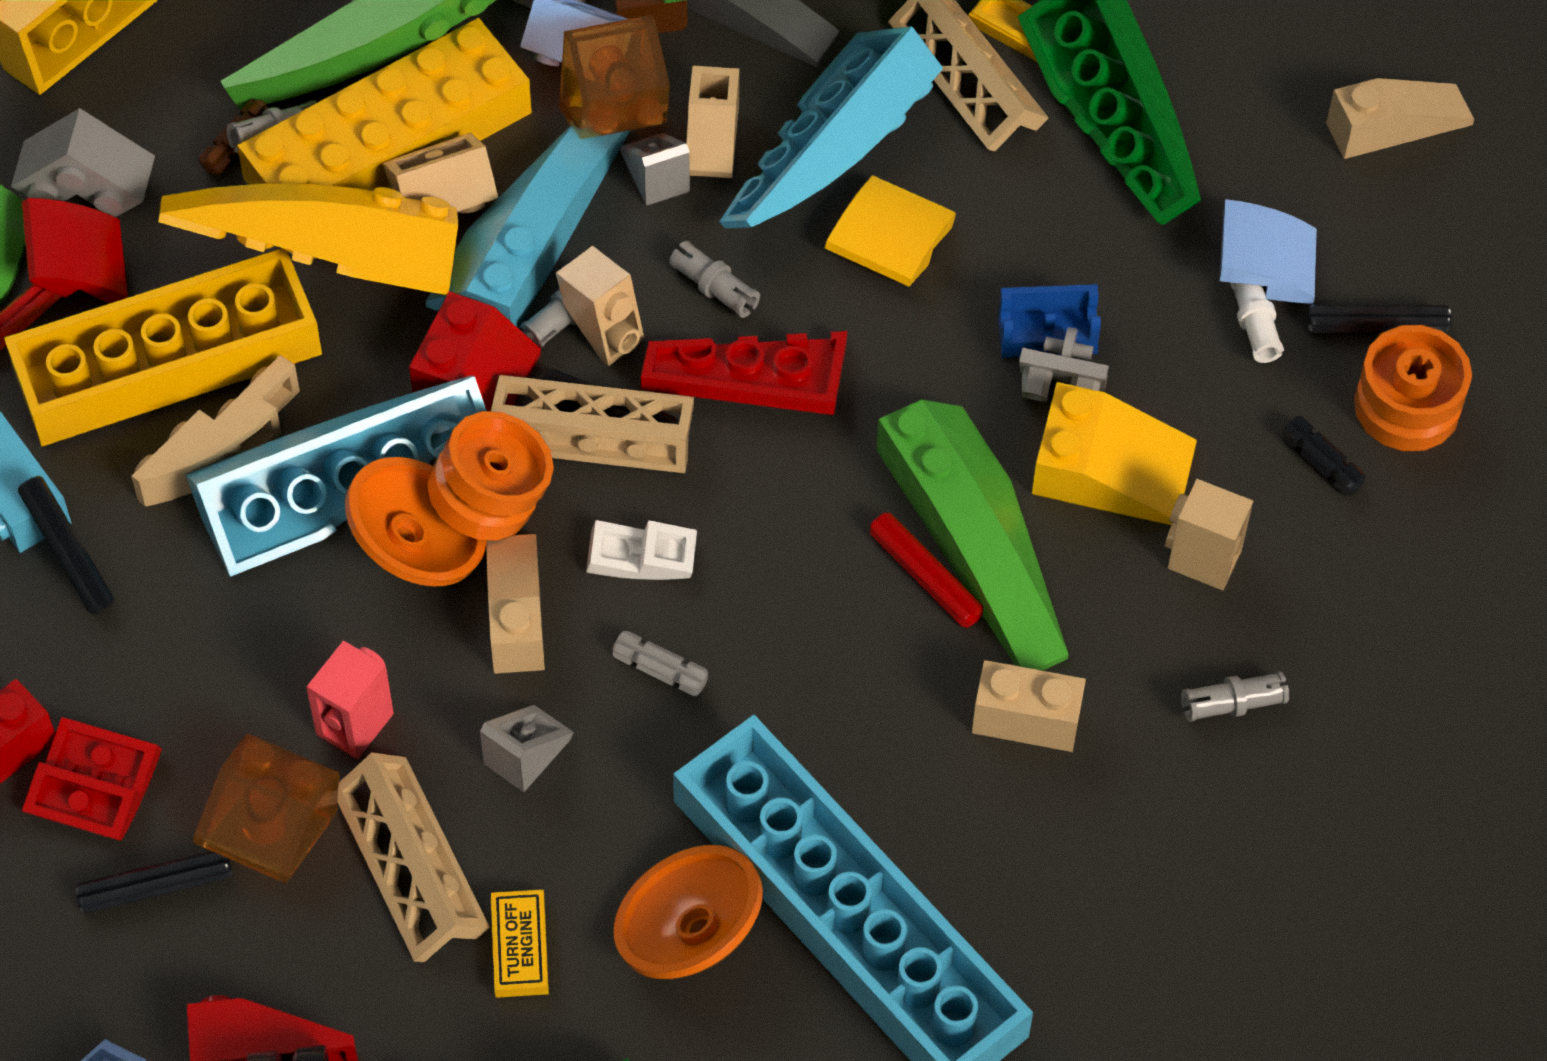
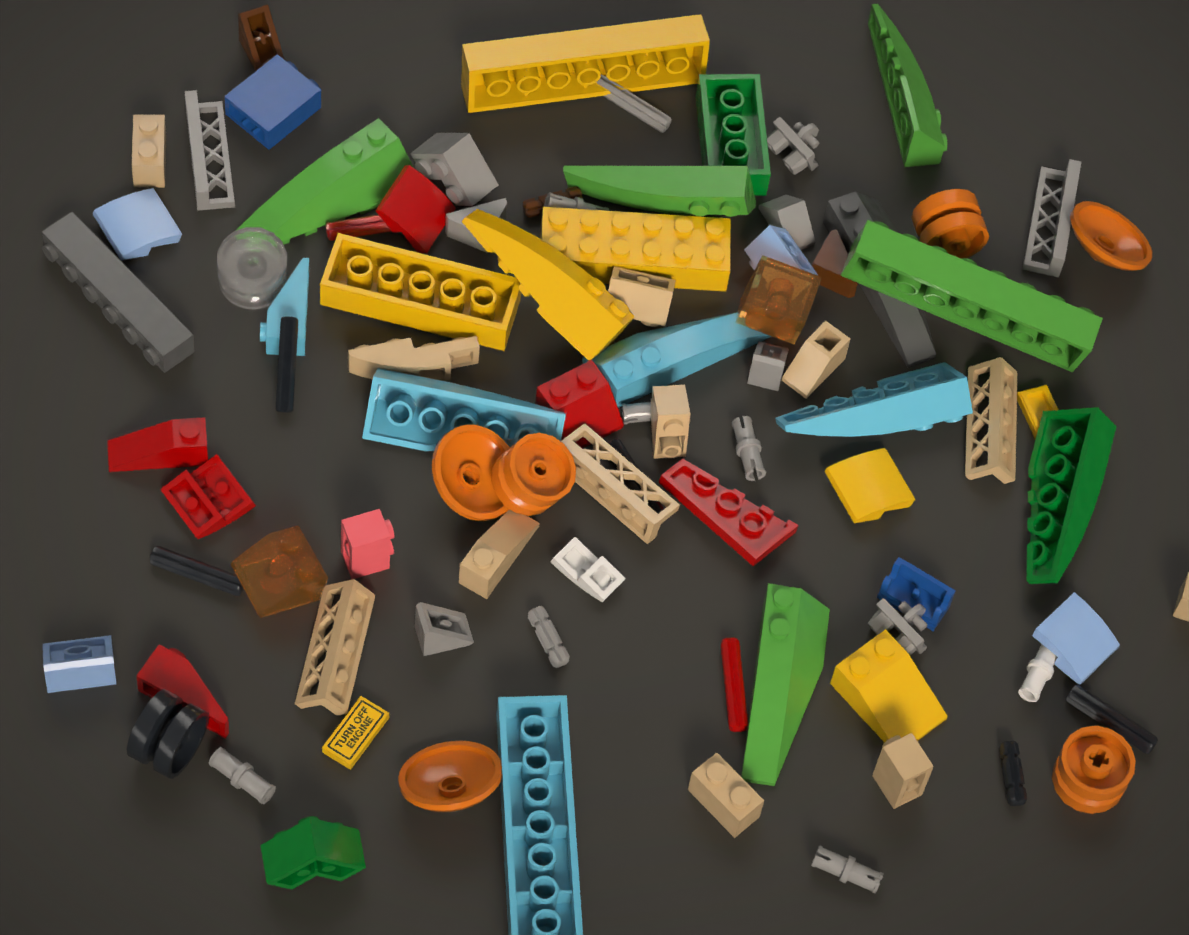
camera: 30 degrees right, 0 degrees up
(147, 238) = (457, 230): none -> light grey slope

